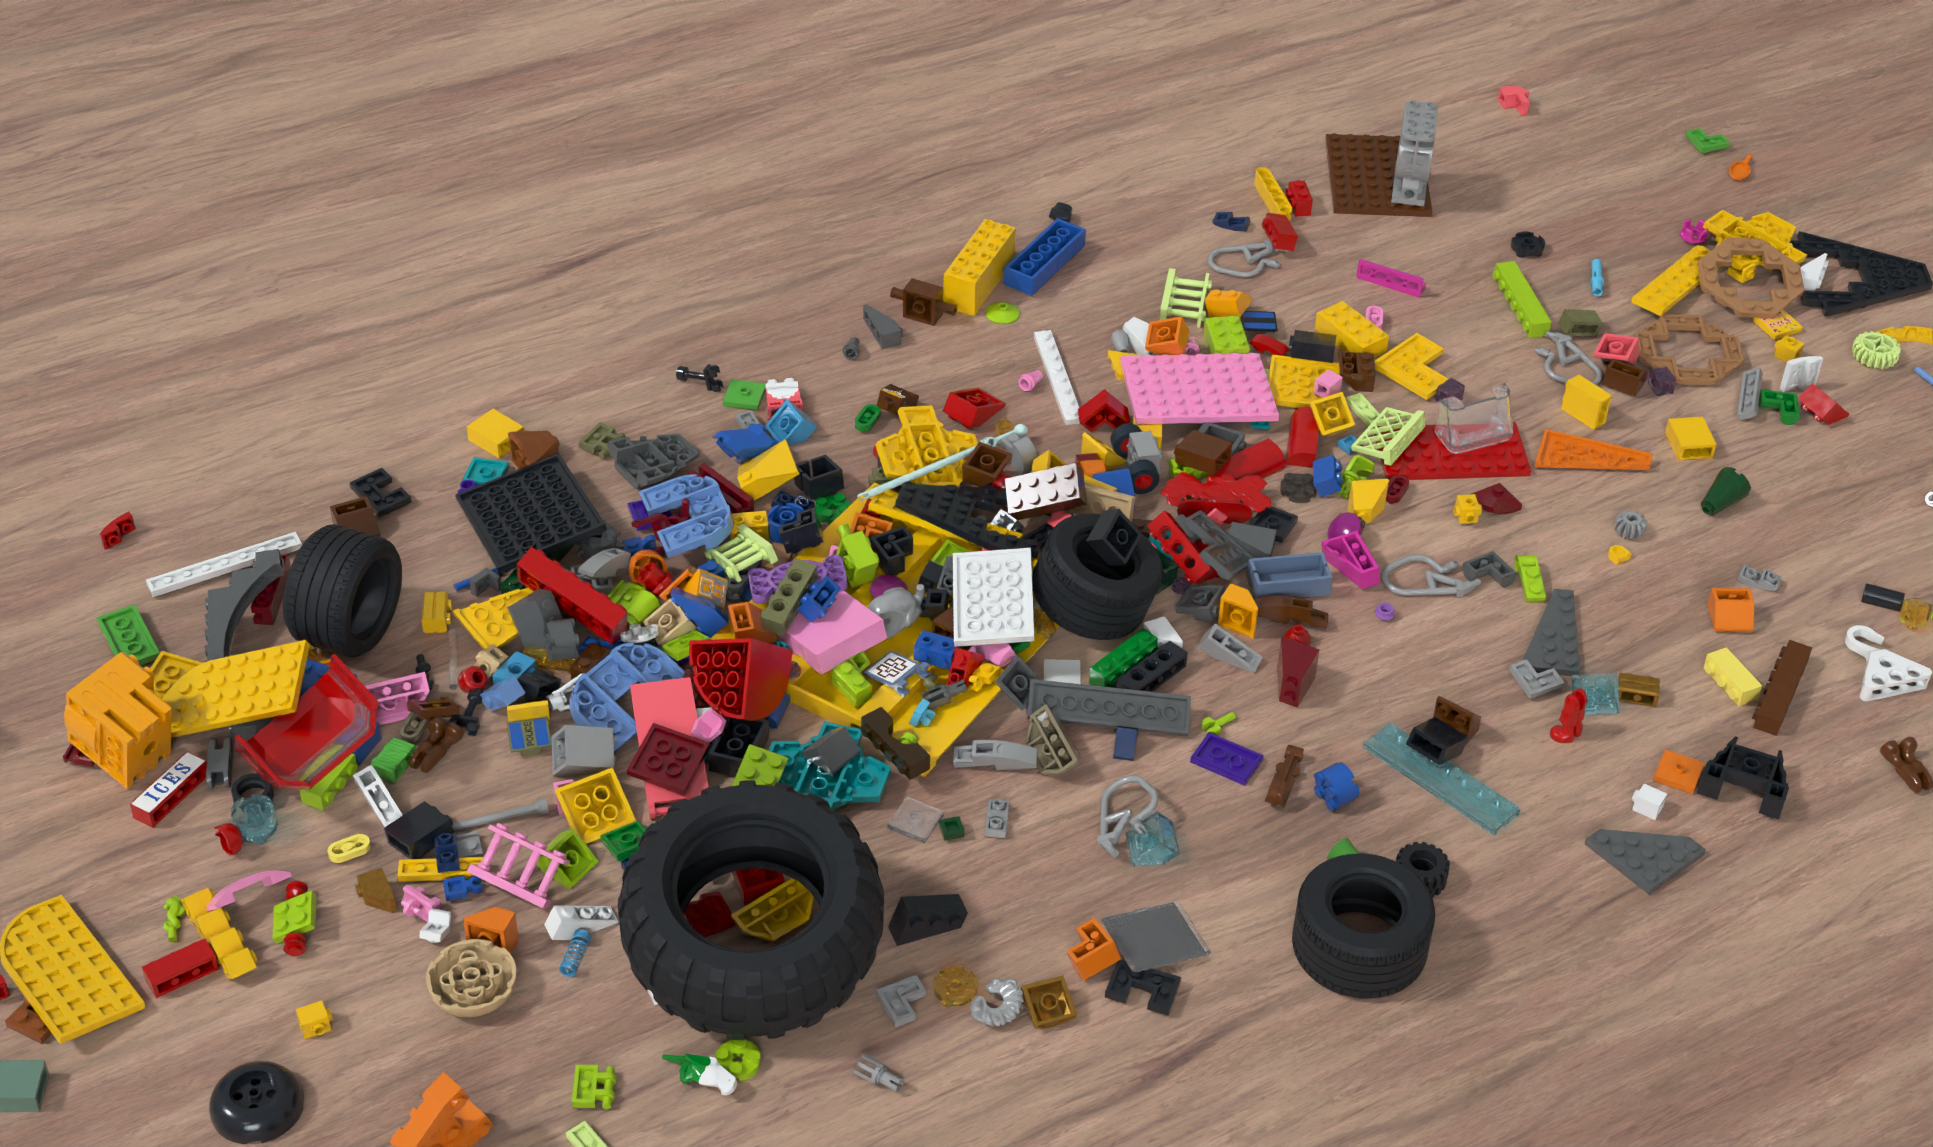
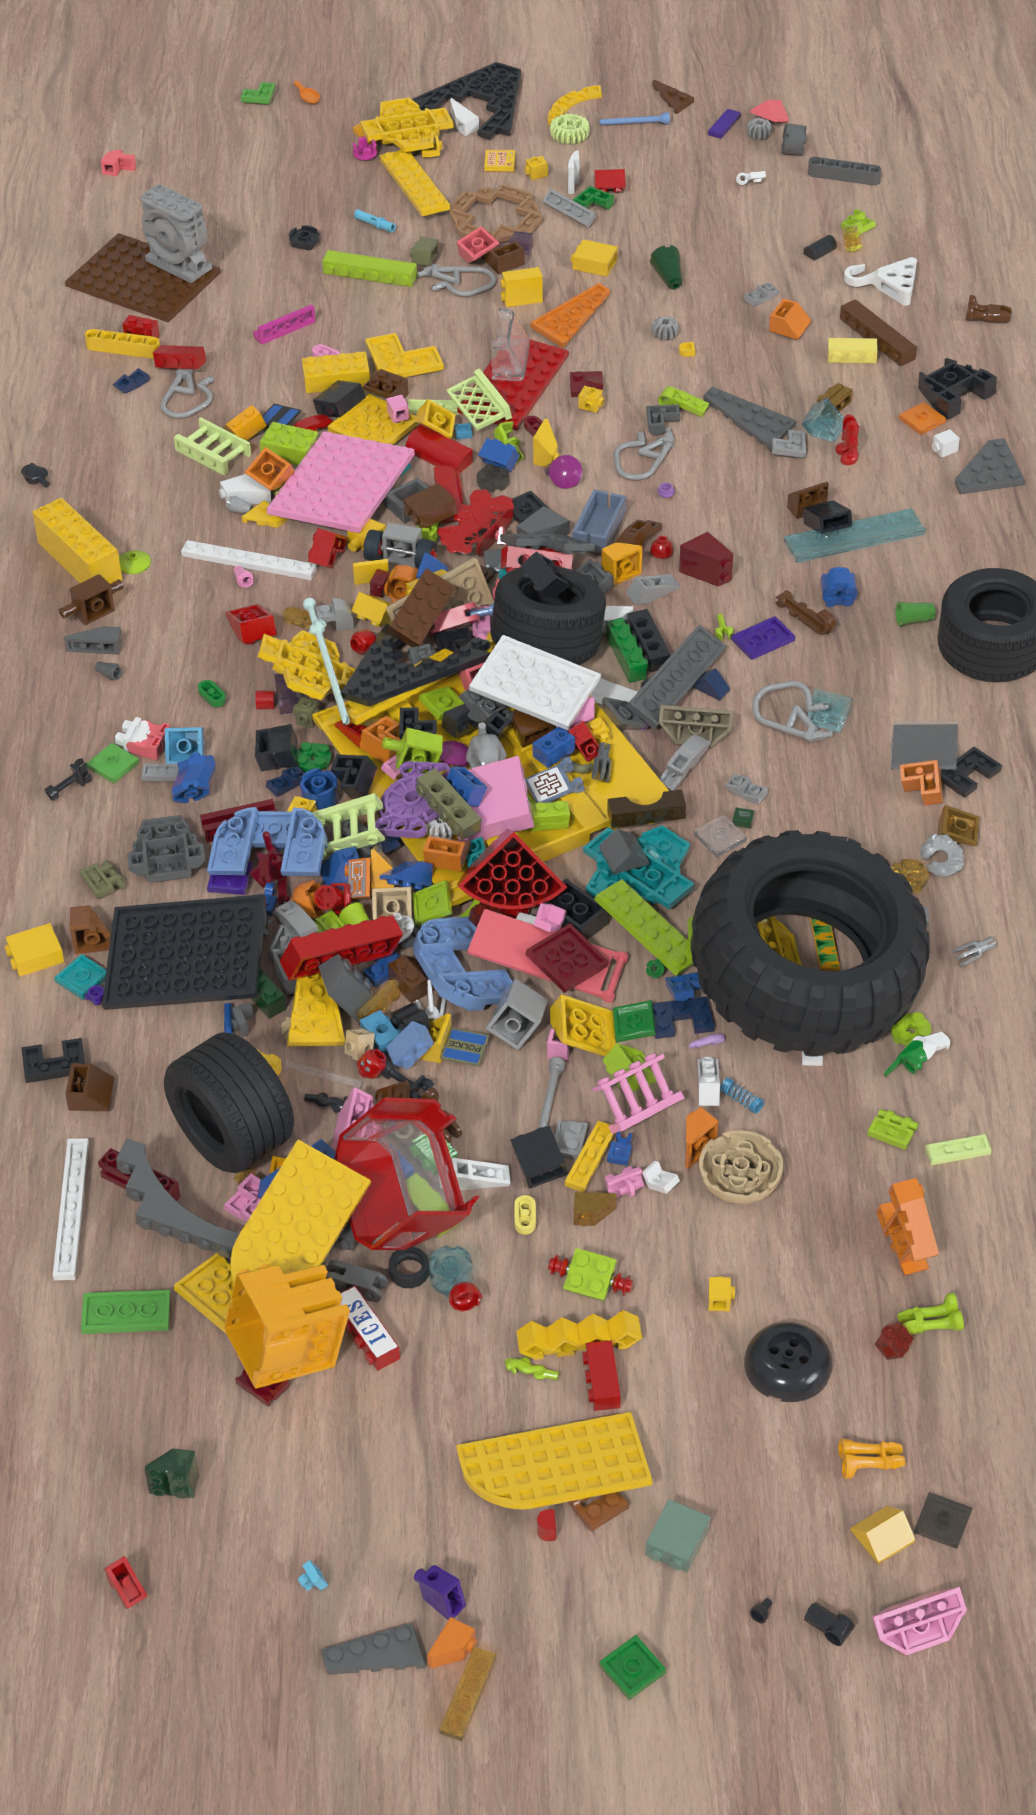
camera: 60 degrees left, 5 degrees up
(226, 895) = (538, 1300): bright pink slope -> none
(446, 852) = (578, 1143): dark blue slope -> none
(561, 639) = (383, 977): dark grey brick -> none
(767, 470) = (240, 776): yellow slope -> none
(893, 398) = (209, 663): reddish brown torso -> none
(908, 738) = (647, 799): lime plate -> none
(921, 713) = (613, 785): medium azure tile -> none
(984, 464) = (350, 636): reddish brown slope -> none
(1044, 256) = (90, 500): blue brick -> none
(1352, 559) = (605, 478): dark pink wedge -> none
(1430, 860) = (939, 576): black tyre -> none
(1449, 389) = (449, 352): clear purple brick -> none
(1772, 259) = (418, 147): medium nougat plate -> none

